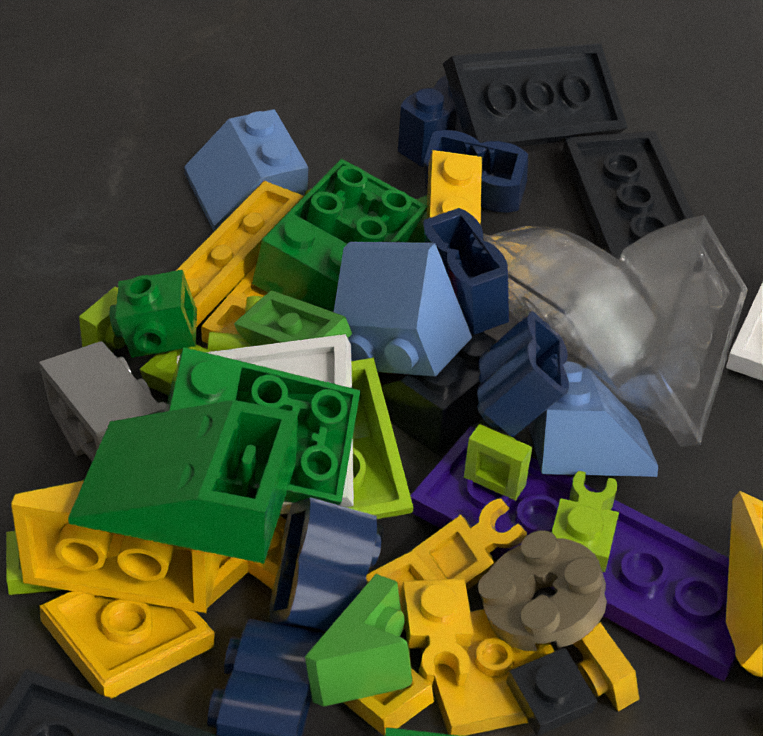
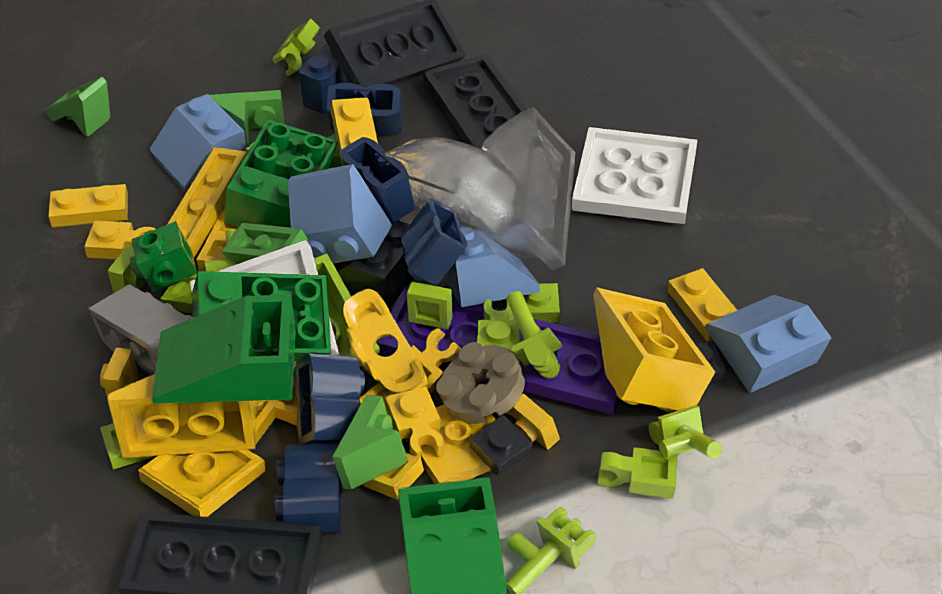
camera: 10 degrees left, 0 degrees up
(56, 460) = (119, 371): none -> yellow plate
(85, 223) = (88, 204): none -> yellow plate
(99, 271) = (110, 238): none -> yellow plate
(118, 95) = (85, 105): none -> bright green slope
(328, 140) = (252, 109): none -> bright green slope
(408, 69) = (296, 45): none -> lime plate
(409, 466) = (367, 322): none -> yellow piece
(638, 555) = (537, 345): none -> lime arm
(655, 496) = (545, 303): none -> lime plate

